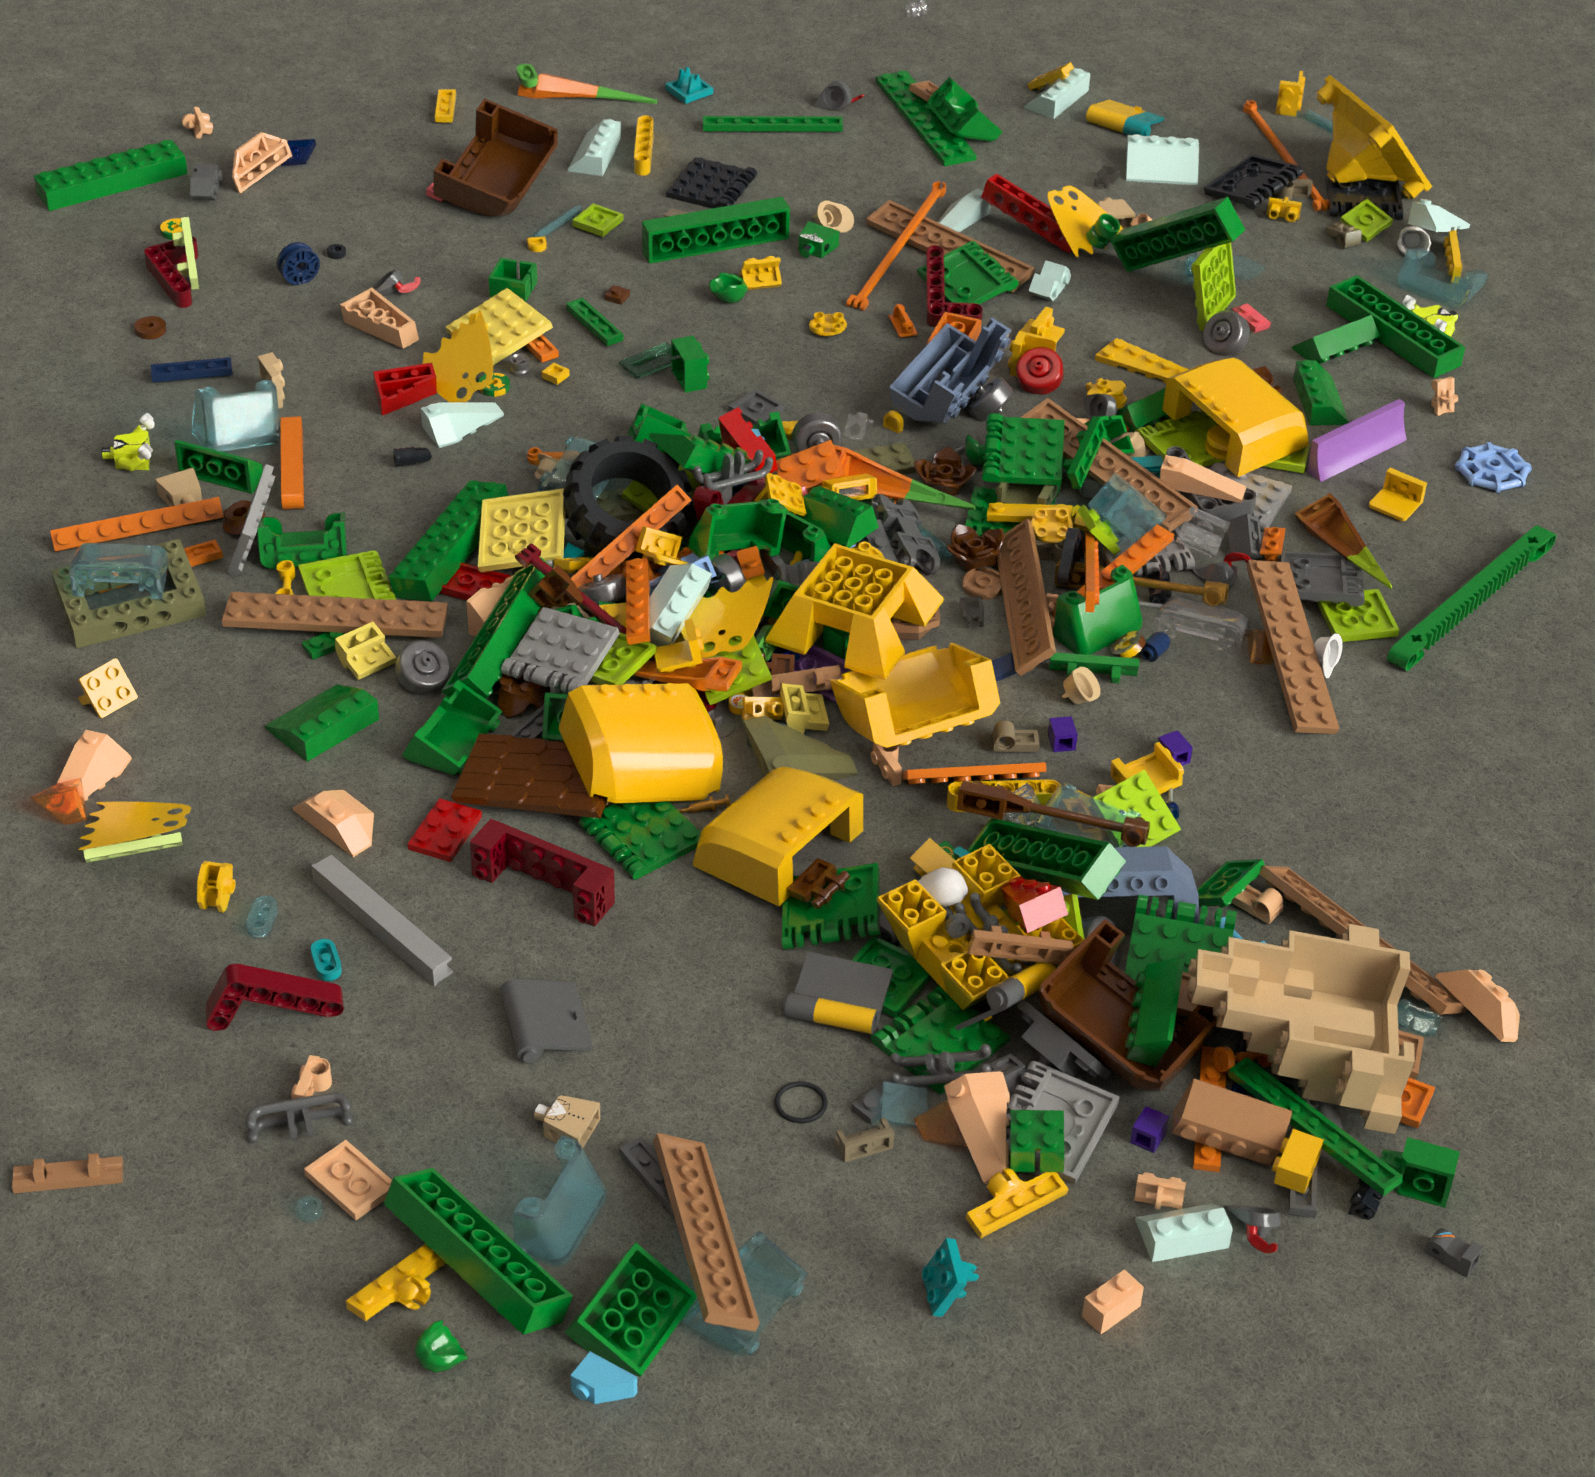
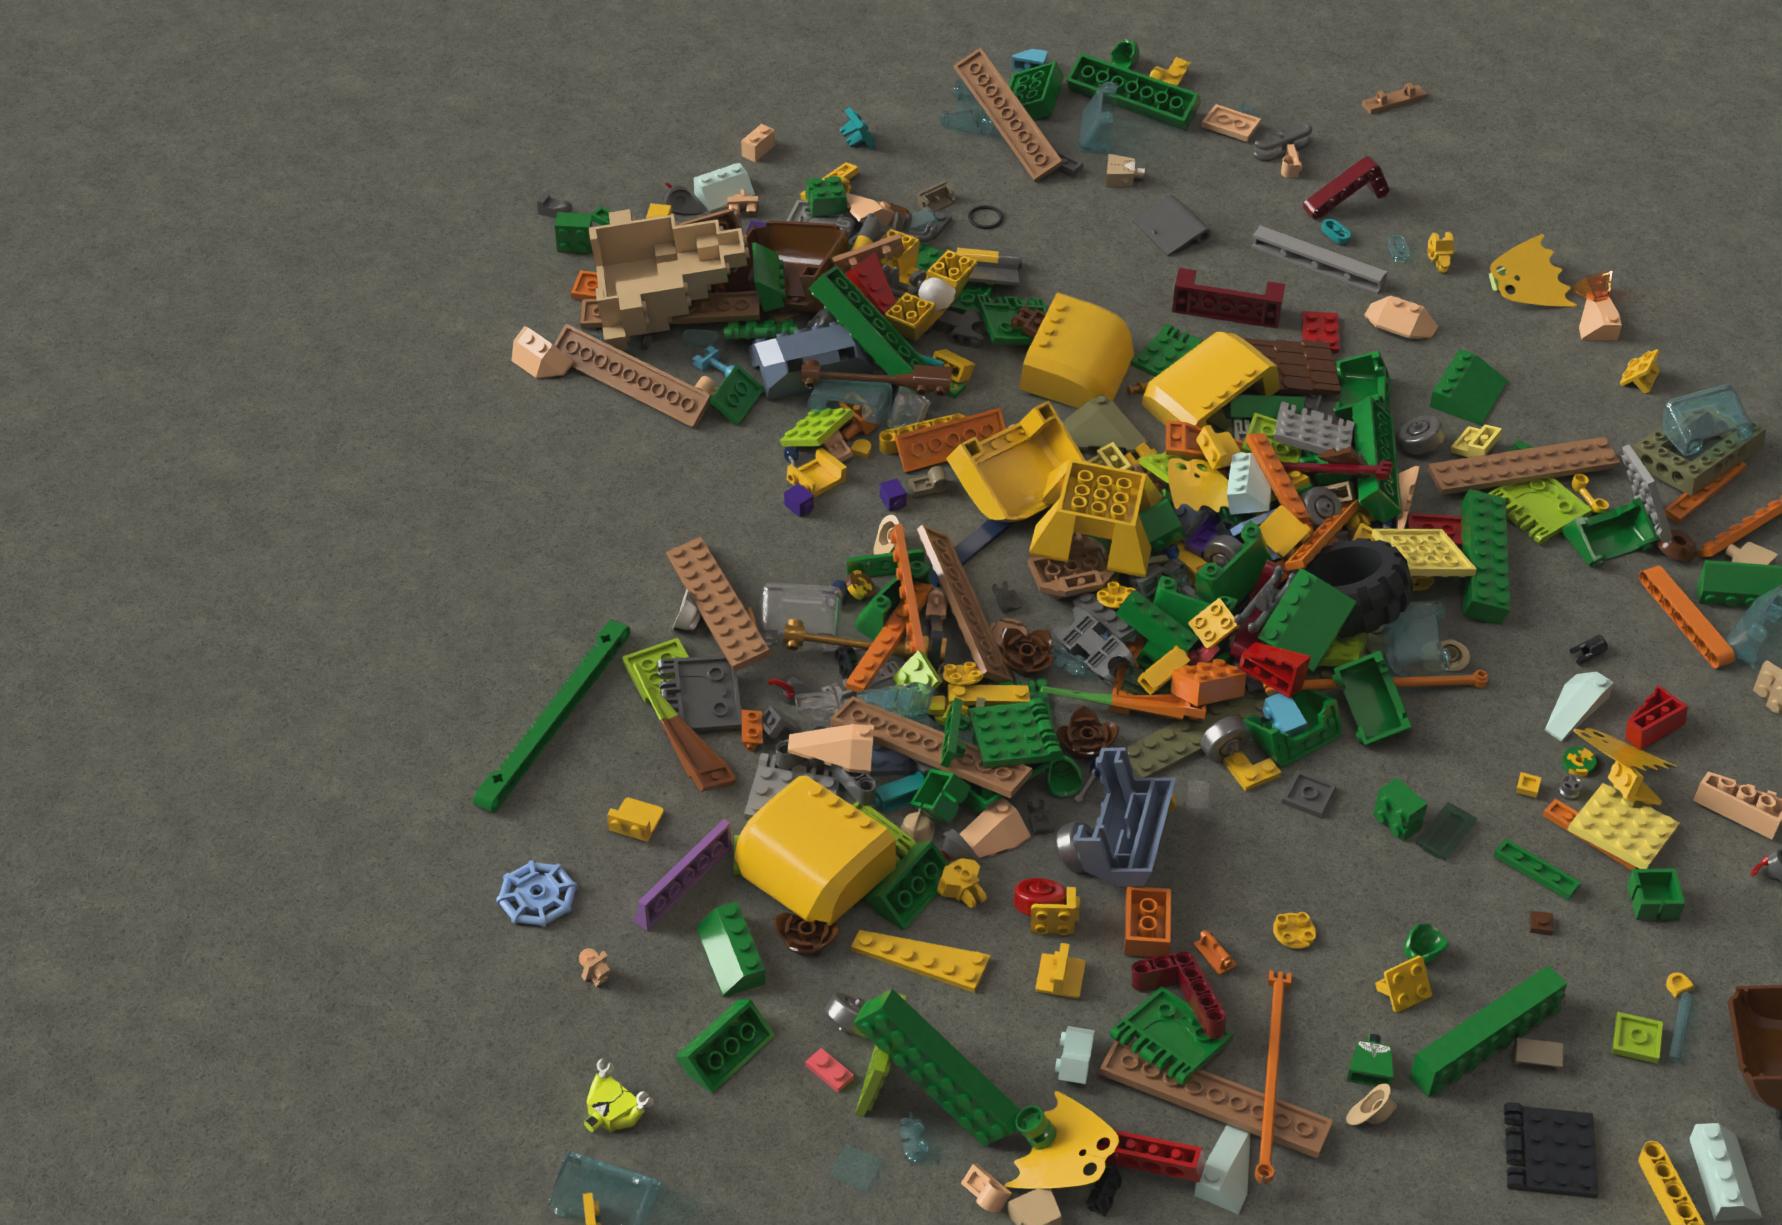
camera: 165 degrees right, 5 degrees up
(1397, 326) = (672, 1083): green brick -> none

